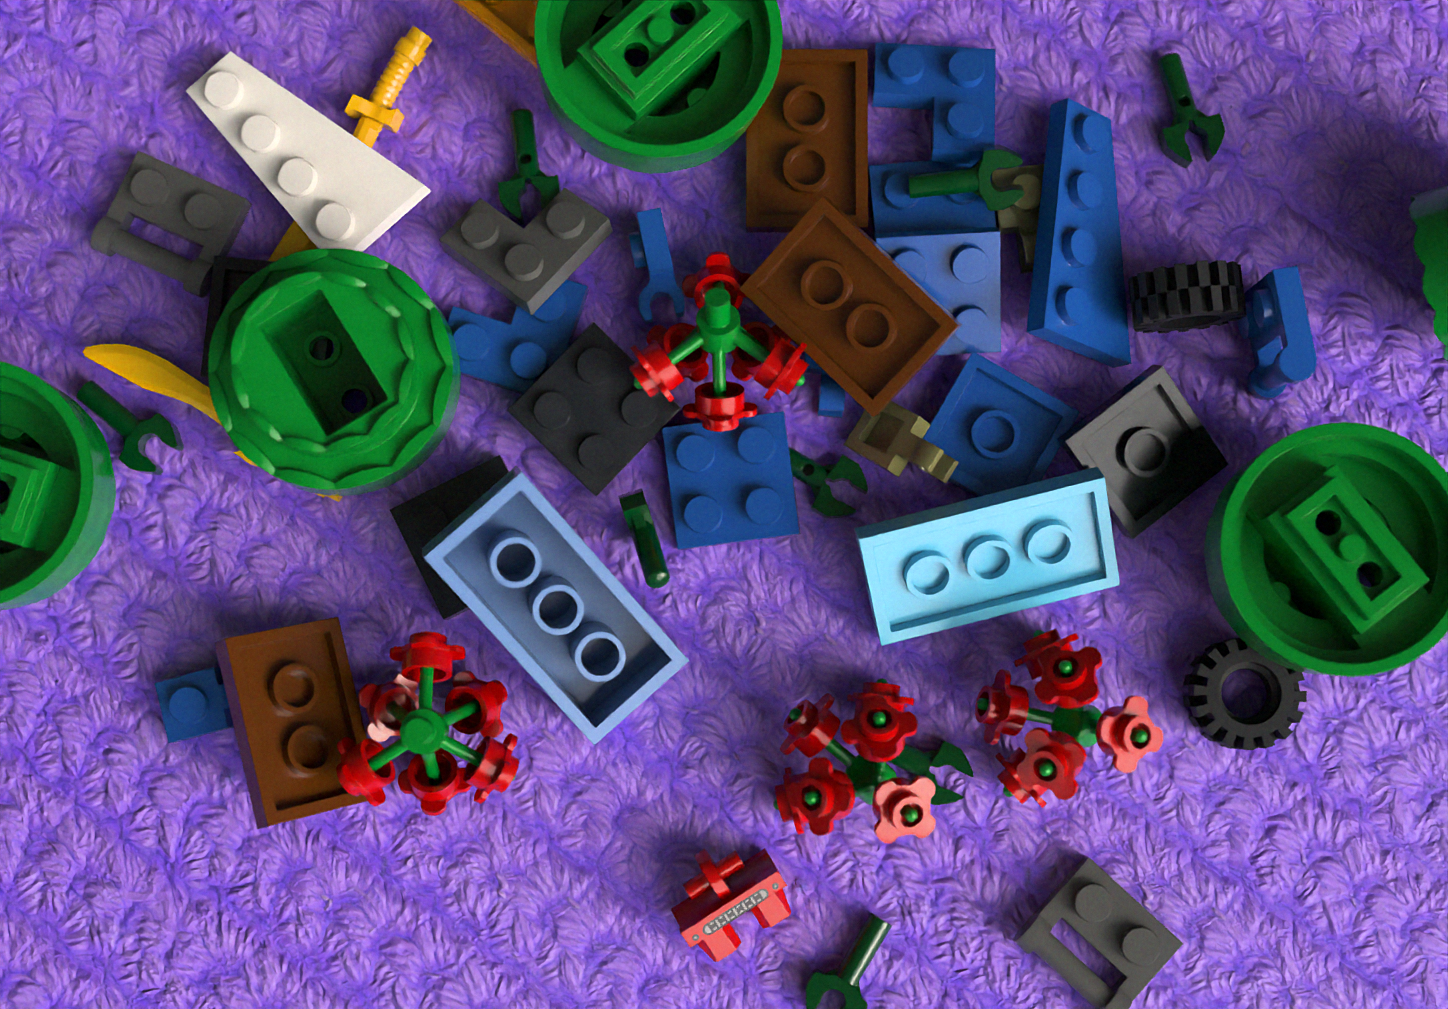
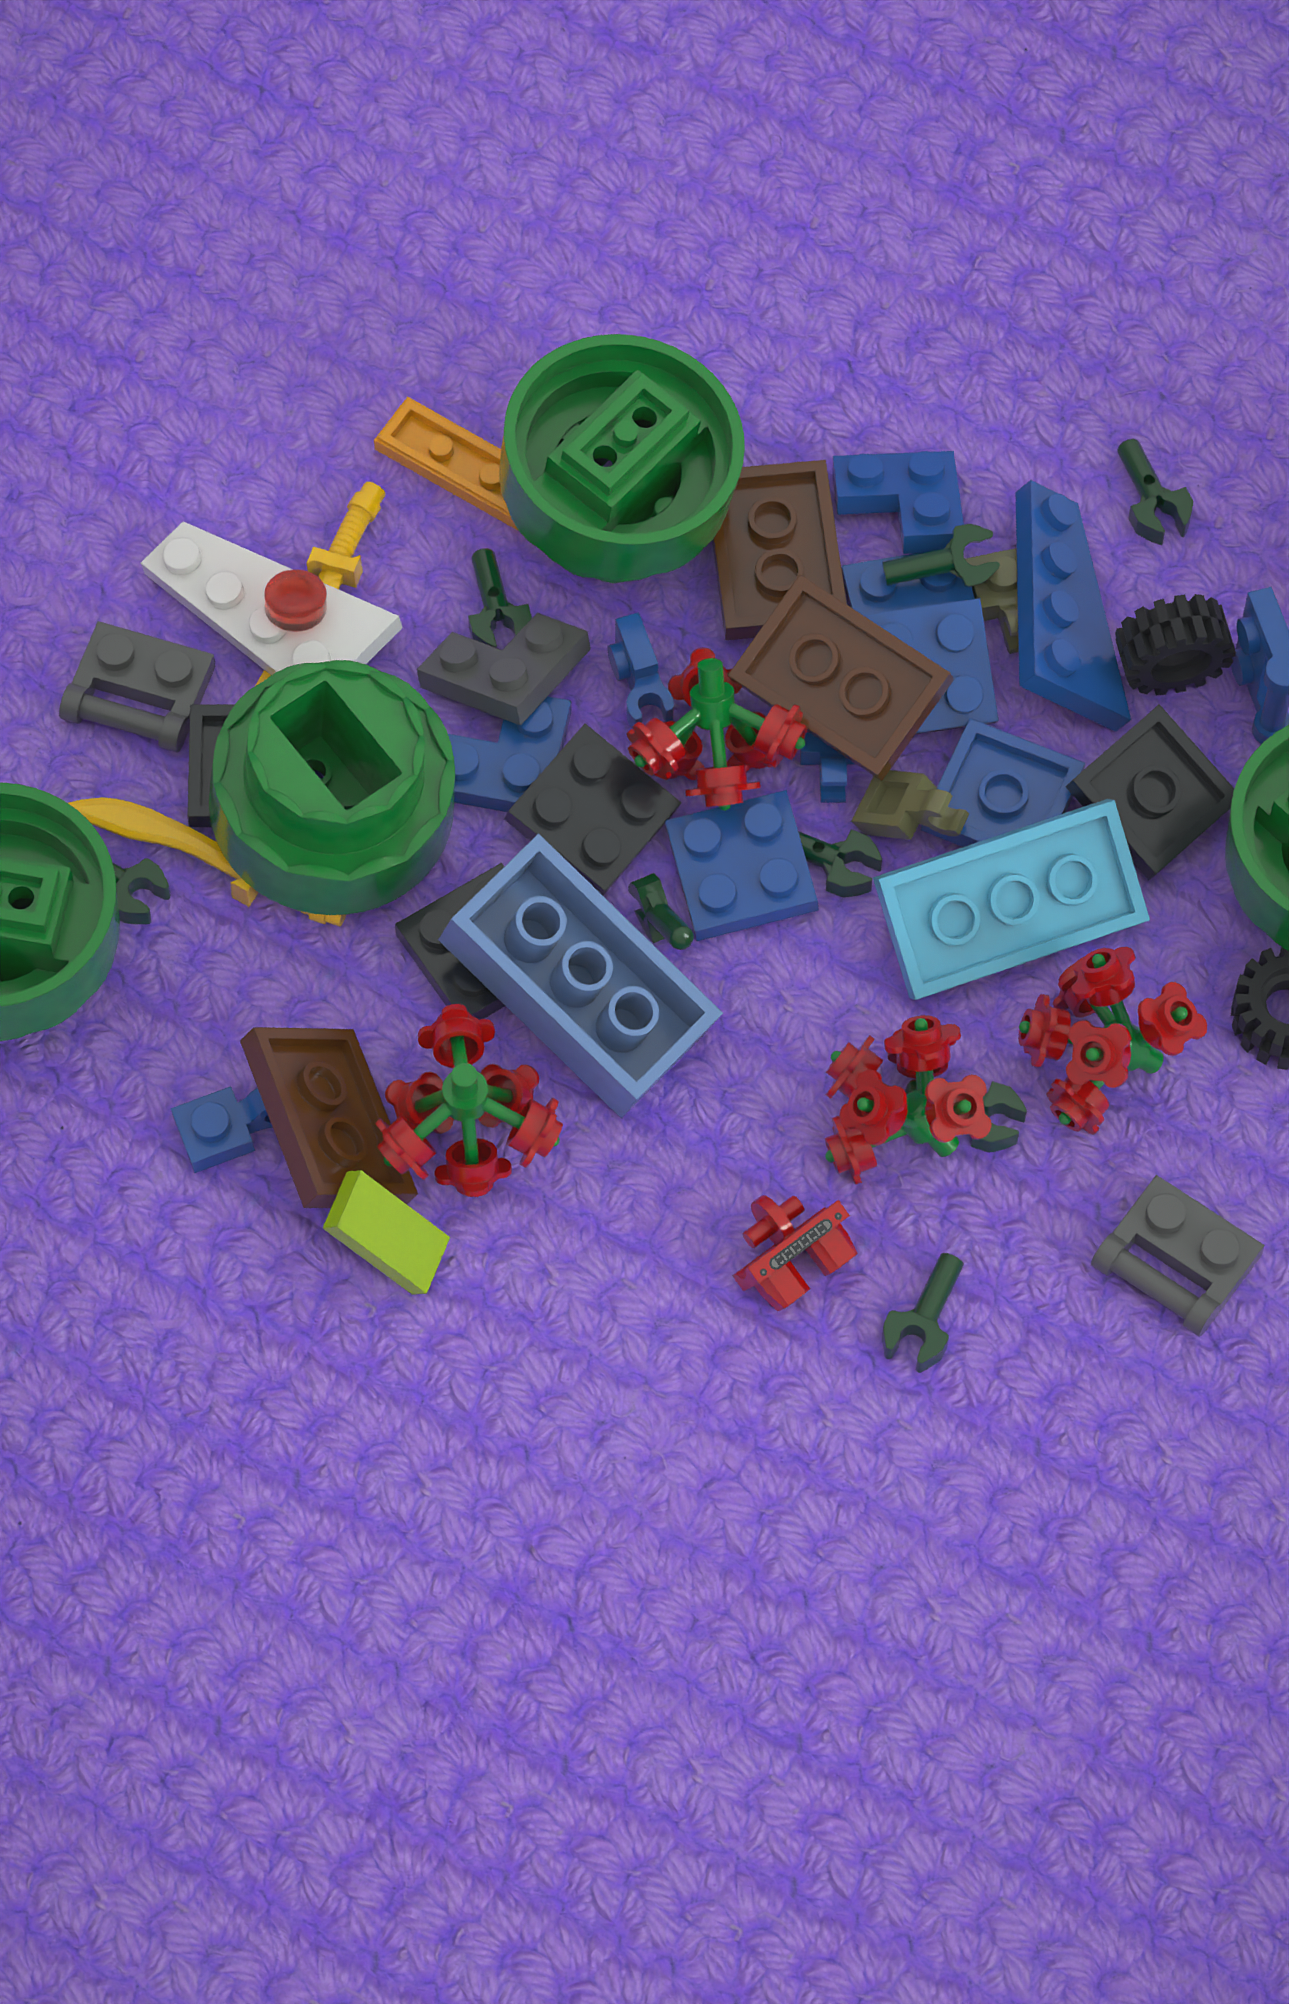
camera: 10 degrees left, 20 degrees down
(323, 159) = (295, 600): none -> clear red tile
(338, 850) = (386, 1232): none -> lime tile

